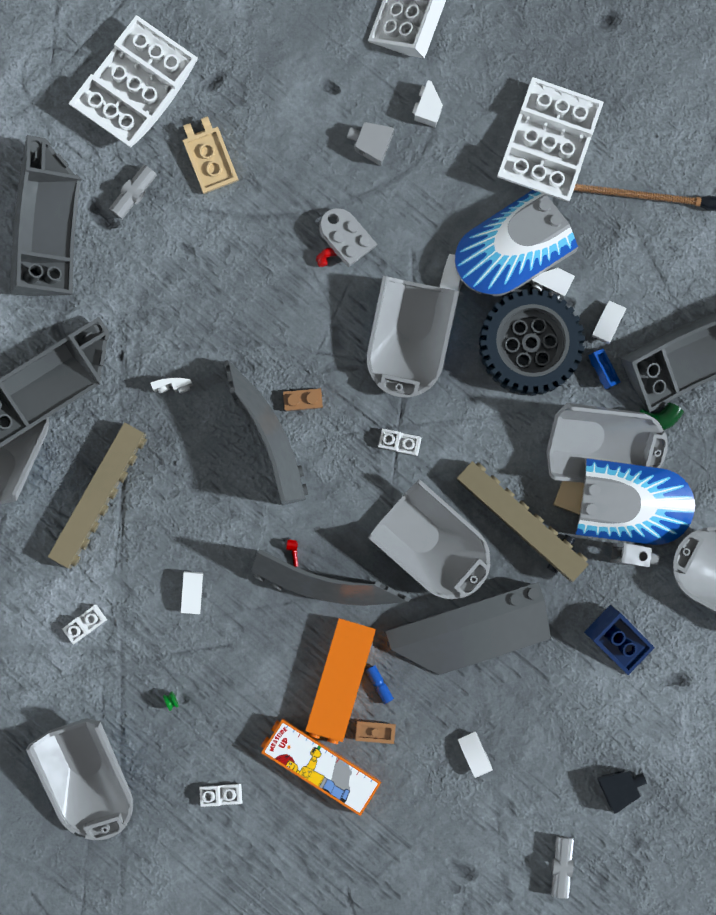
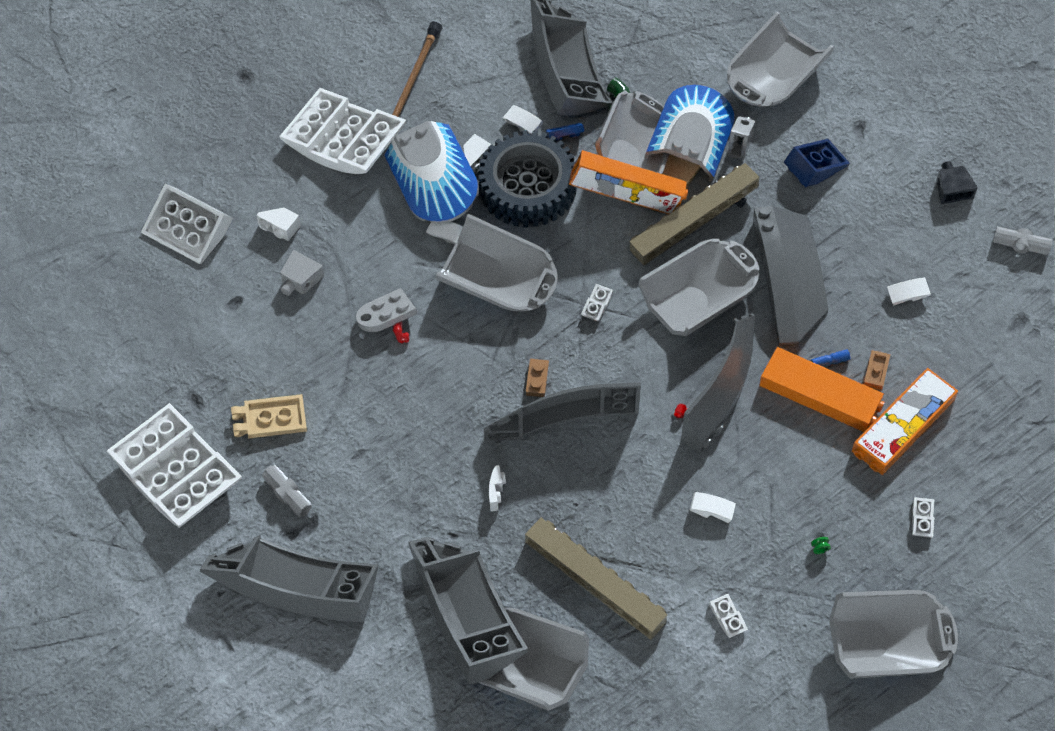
camera: 75 degrees left, 25 degrees down
(535, 446) = (627, 182): none -> brick

